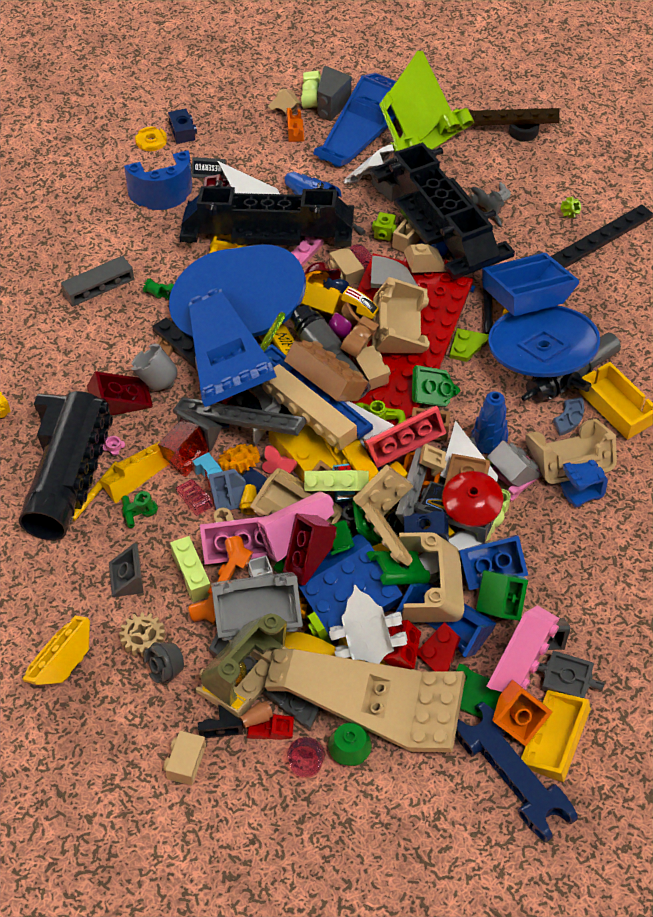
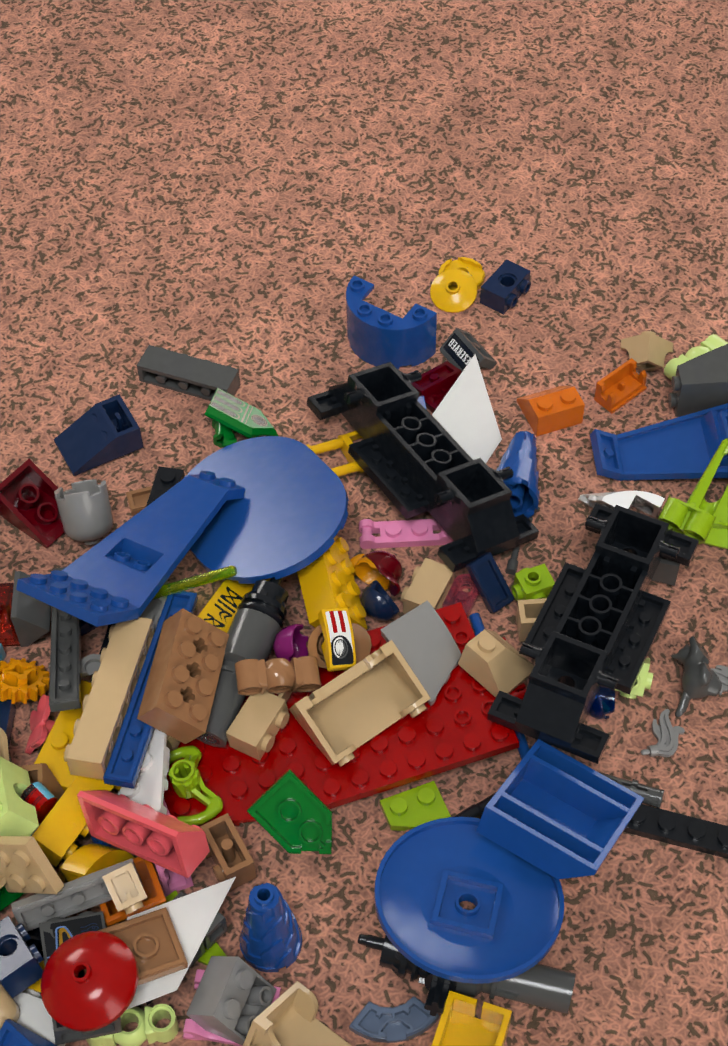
camera: 55 degrees right, 0 degrees up
(101, 339) = (99, 436): none -> dark blue slope
(153, 274) = (239, 415): none -> green tile
(160, 152) = (453, 300): none -> yellow dish
(280, 156) = (552, 409): none -> orange slope
(367, 240) = (490, 582): none -> dark blue tile
(508, 235) = (666, 736): none -> light grey piece

